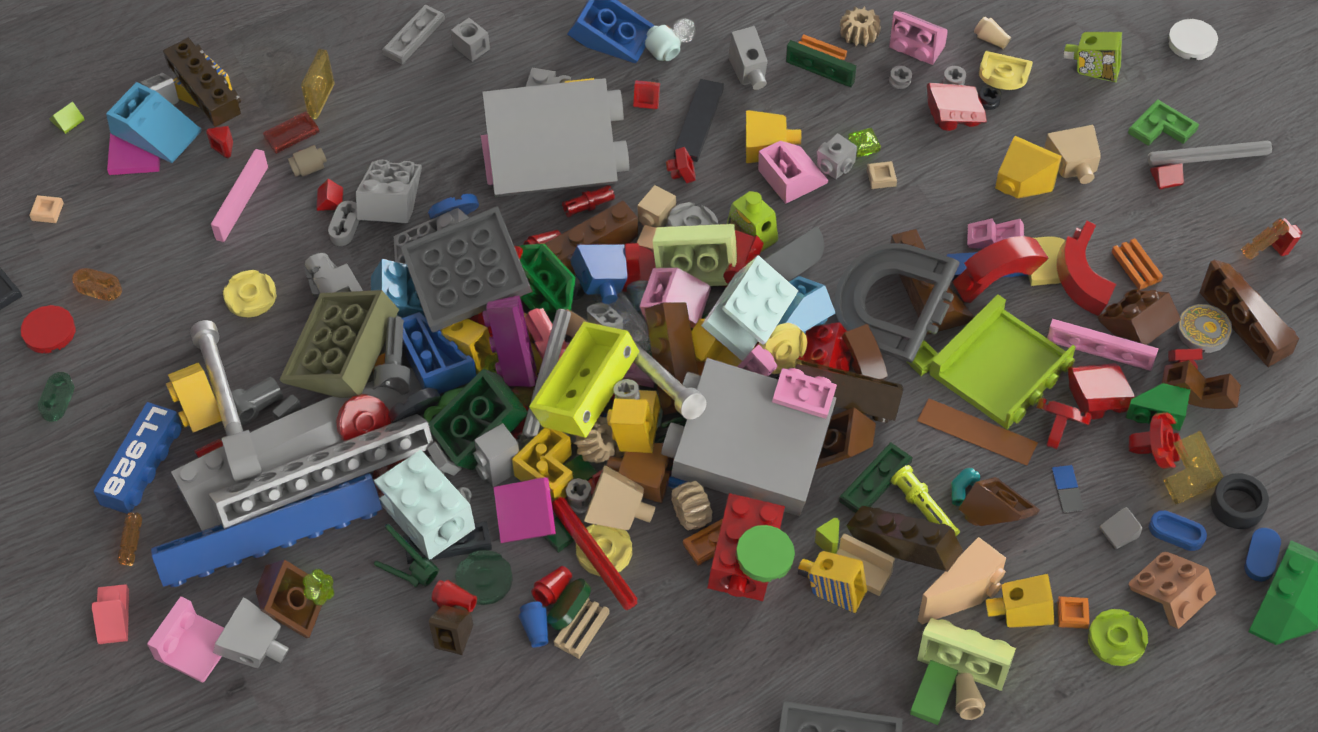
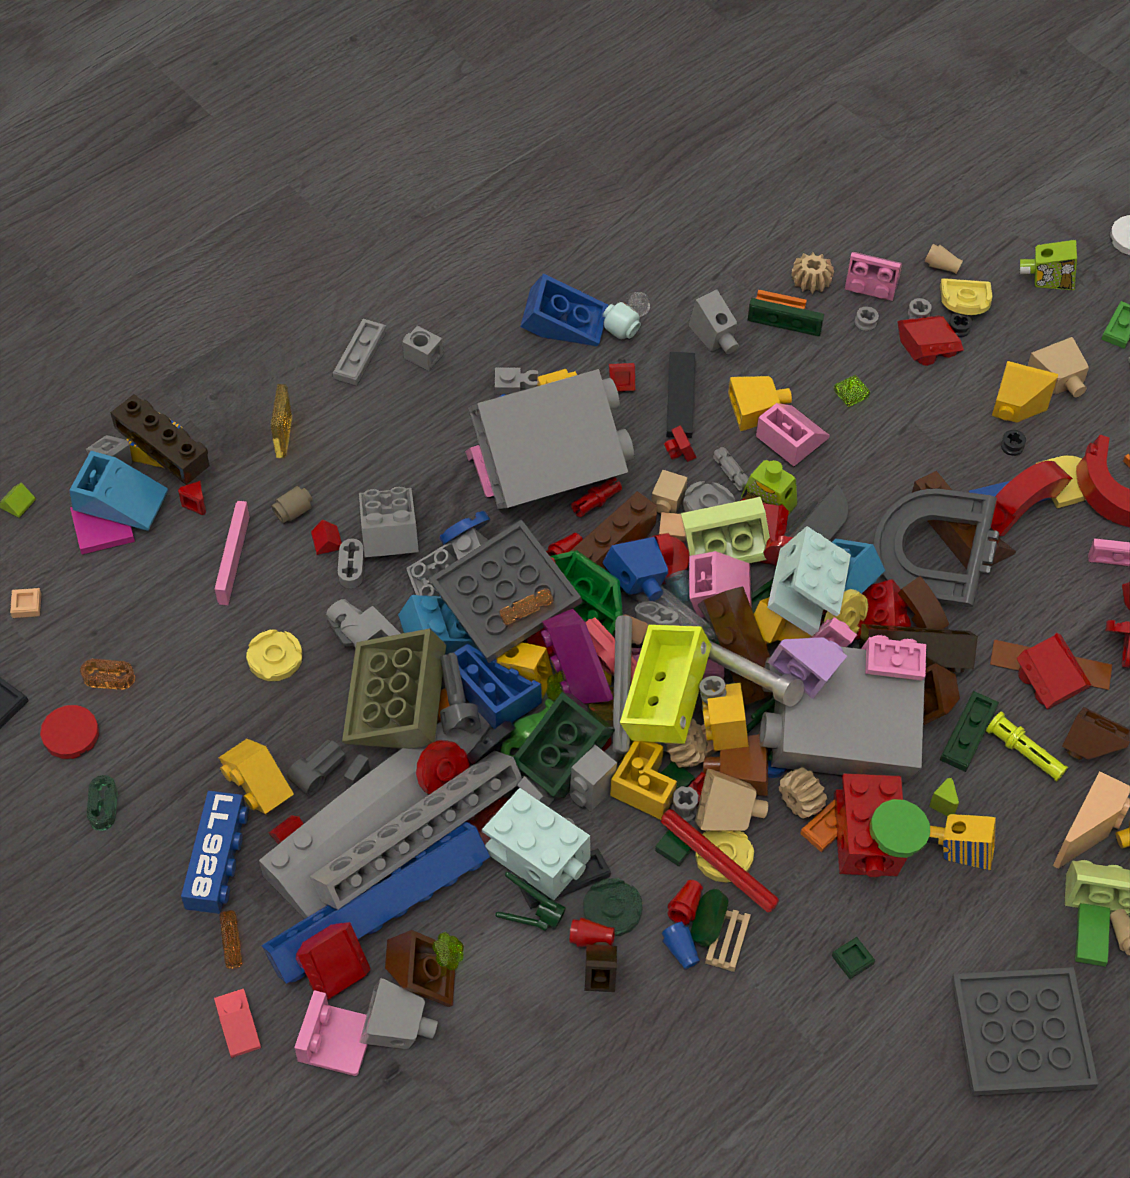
camera: 15 degrees left, 0 degrees up
(209, 574) = (333, 959): none -> red slope
(237, 443) = (325, 819): piece -> none
(291, 132) = (263, 476): clear red tile -> none
(476, 285) = (526, 606): none -> clear orange axle
(524, 510) = (637, 830): dark pink tile -> none
(695, 668) = (853, 958): none -> dark green tile
(715, 379) = (809, 660): none -> lavender slope
(723, 193) = (731, 468): none -> light grey axle
(836, 156) = (832, 409): light grey brick -> none
(877, 564) = (1005, 815): tan panel -> none
(881, 175) = (879, 421): tan tile -> none
(906, 537) = (1026, 785): dark brown brick -> none
(923, 359) = (982, 602): lime tile -> none
(959, 484) = (1053, 719): teal arm -> none
(973, 437) = (1052, 671): none -> red slope
(987, 232) = (1004, 464): bright pink slope -> none
(1000, 364) = (1055, 592): lime panel -> none
(1006, 209) = (1010, 449): none -> black bush

